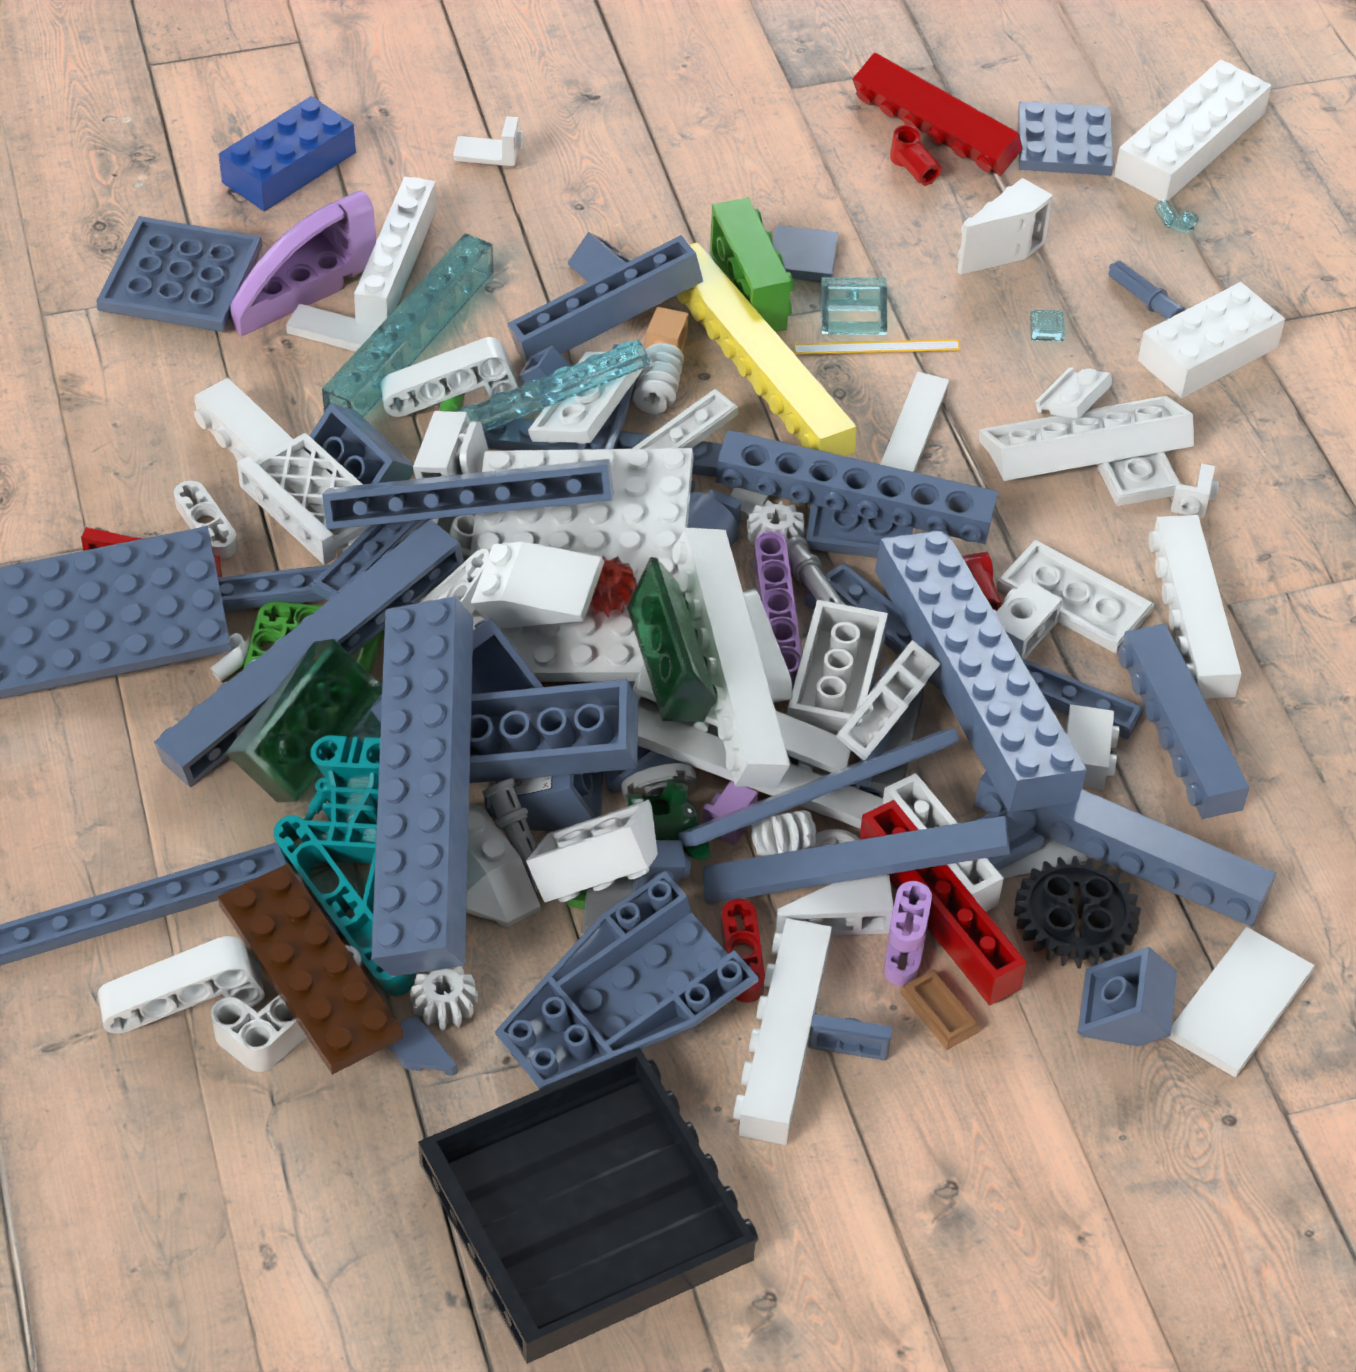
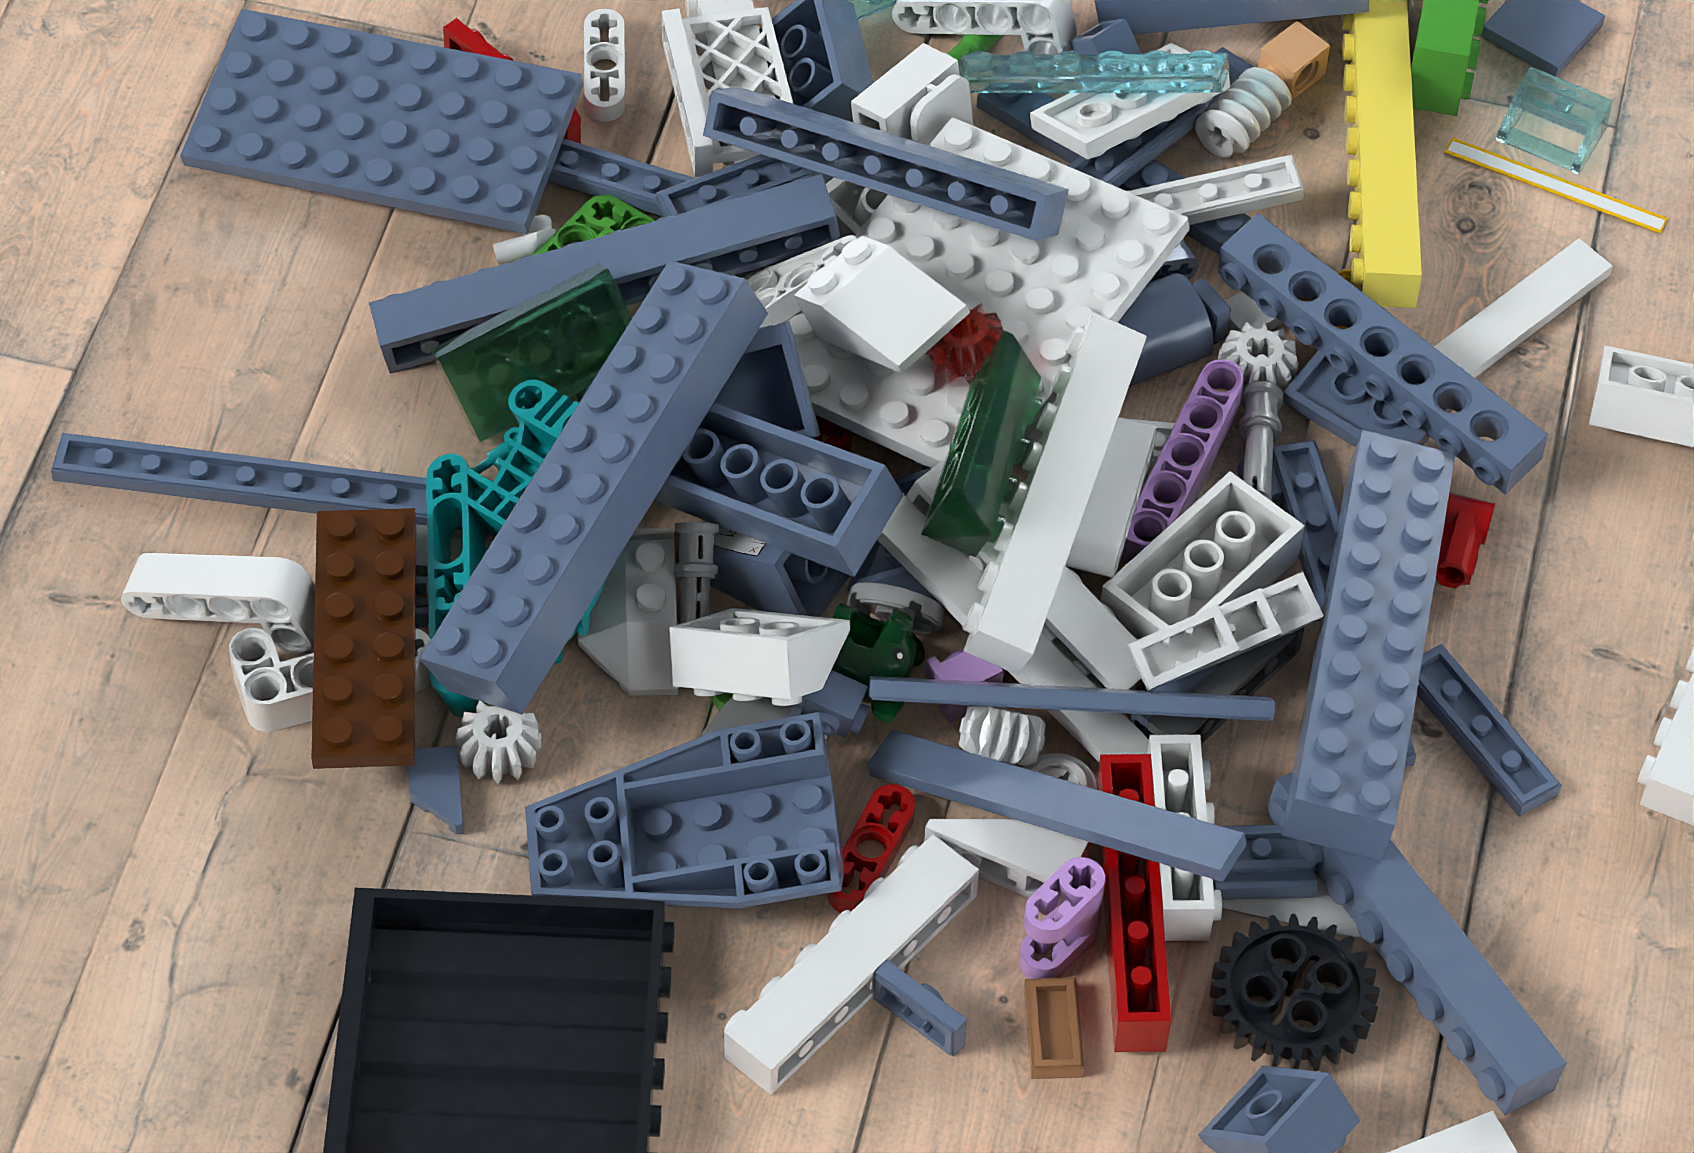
camera: 30 degrees right, 5 degrees up
(1028, 615) = (1509, 611): white brick -> none
(1089, 600) = (1579, 610): white tile -> none
(1093, 737) = (1451, 802): white brick -> none
(1183, 721) = (1596, 825): sand blue brick -> none

